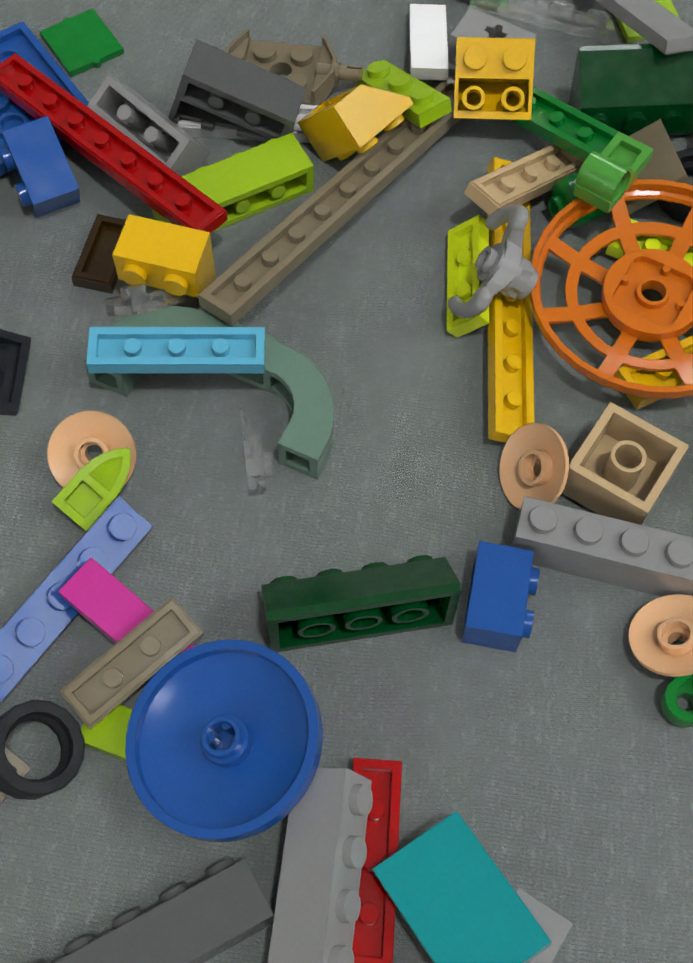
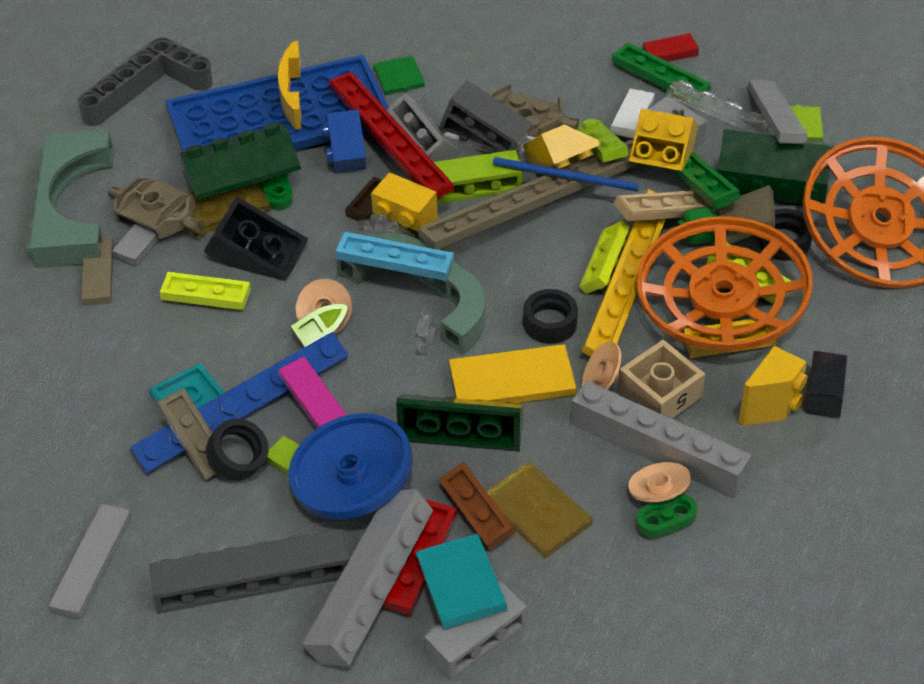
camera: 20 degrees right, 15 degrees down
(131, 663) = (305, 418): dark tan tile -> none
(389, 158) = (566, 174): none -> blue axle
(402, 503) = (514, 375): none -> yellow tile
(425, 361) = (550, 332): none -> black tyre
(429, 746) = (477, 506): none -> dark orange plate
(499, 596) = (552, 437): blue brick -> none
(500, 266) = (620, 250): light grey piece -> none
(513, 722) = (539, 509): none -> clear yellow tile
(609, 174) = (712, 209): bright green plate -> none

